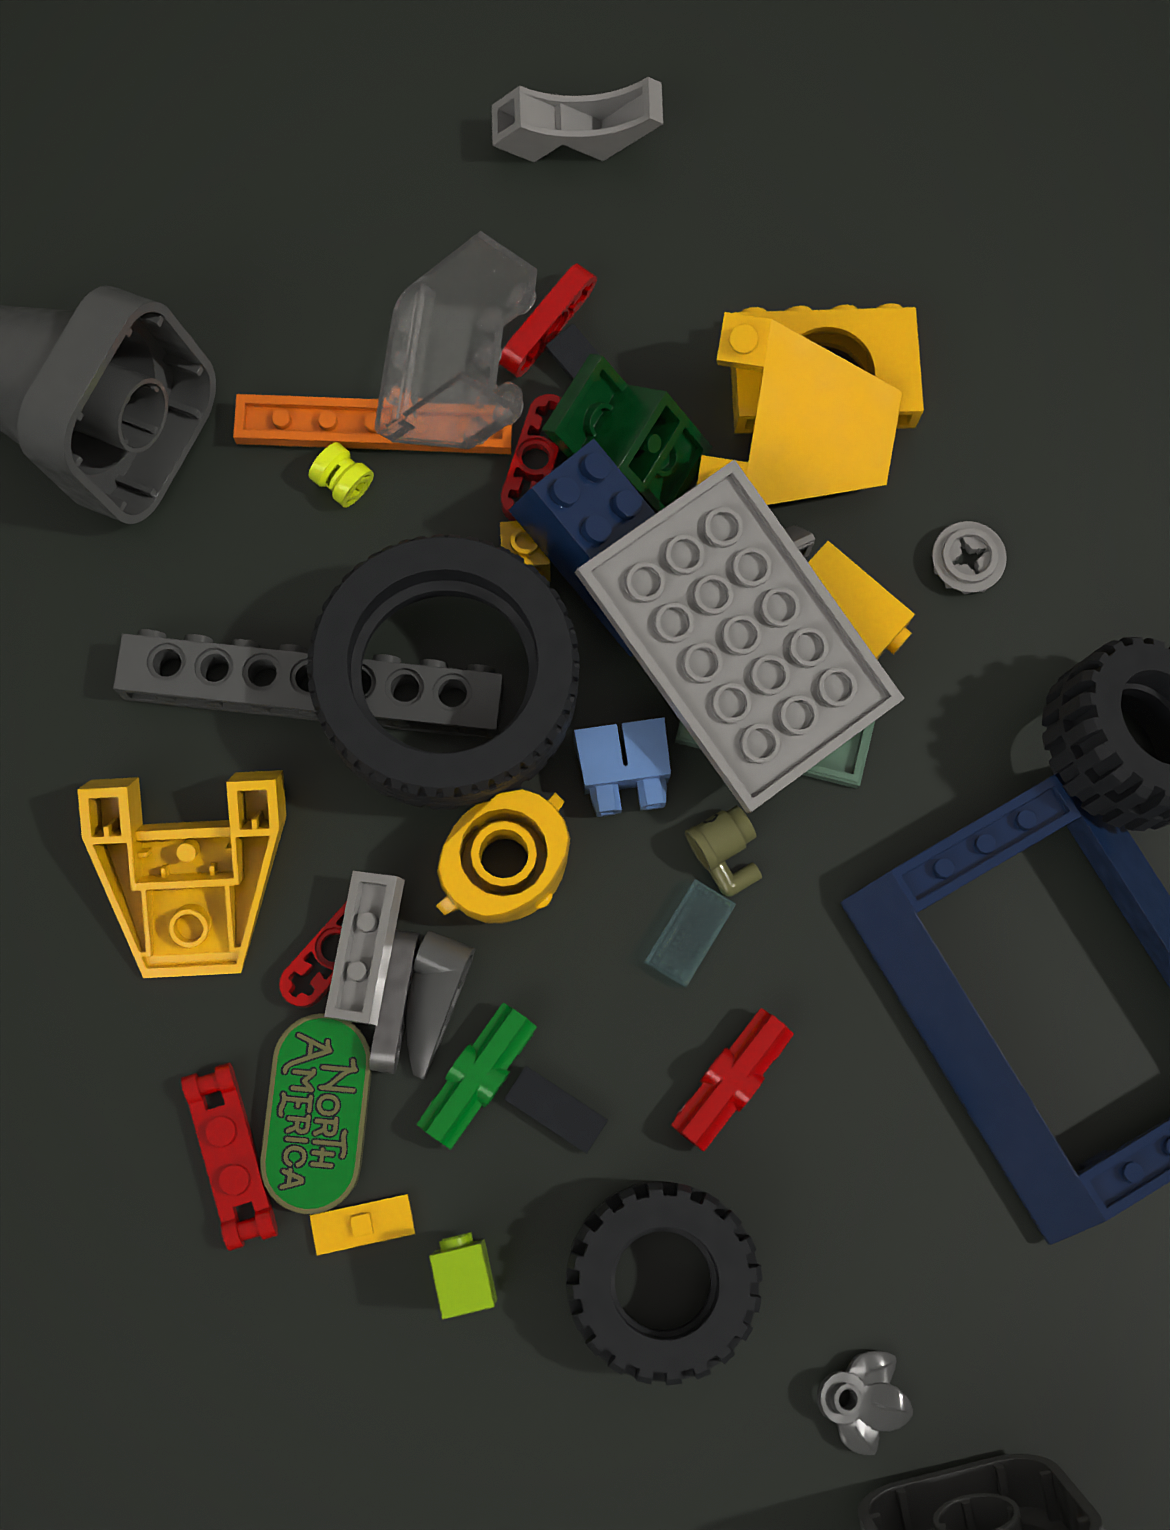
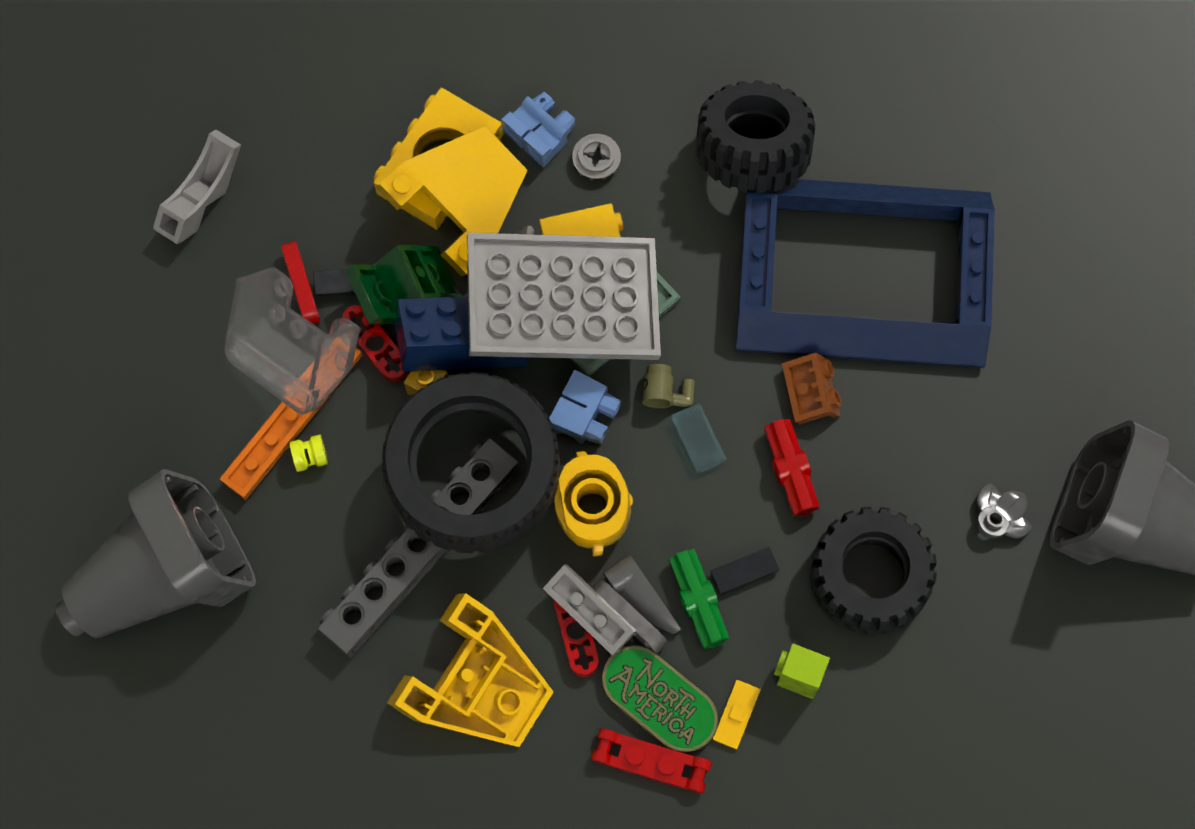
camera: 50 degrees left, 5 degrees down
(856, 1035) = (811, 388): none -> dark orange bracket
(948, 462) = (536, 130): none -> medium blue hips

